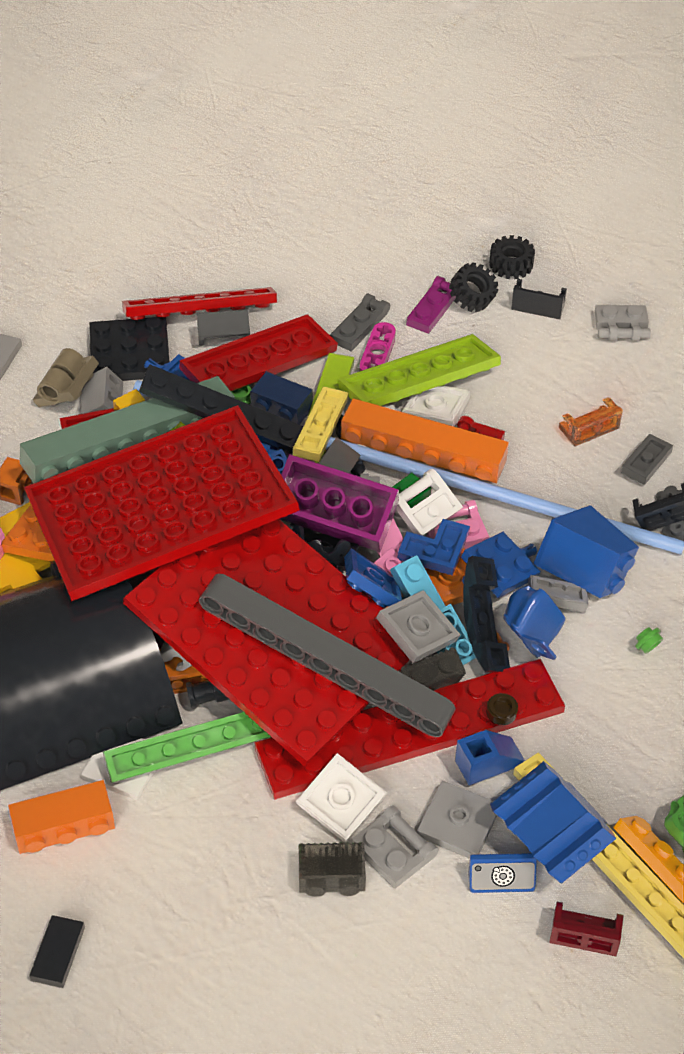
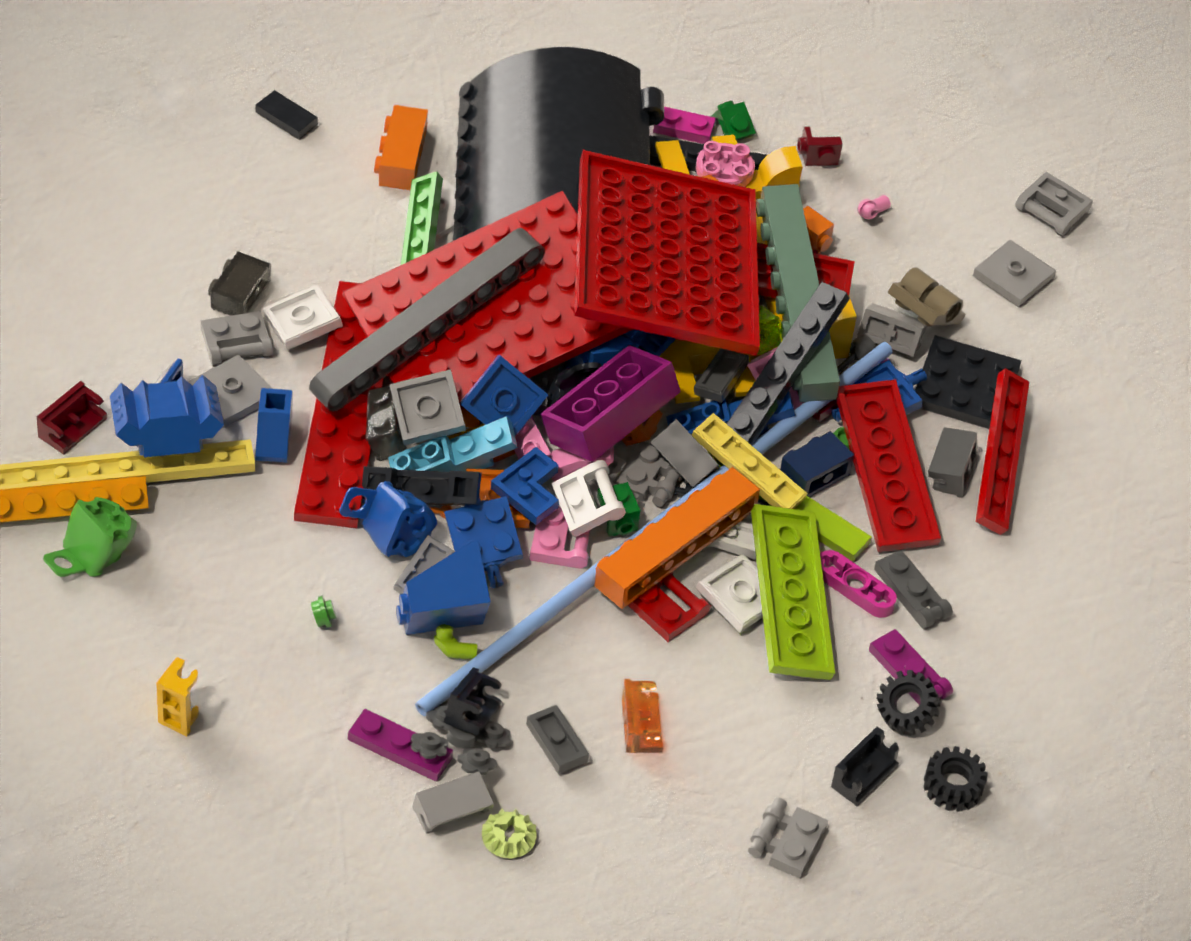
camera: 110 degrees right, 0 degrees up
(502, 709) = (314, 454): dark brown tile -> none

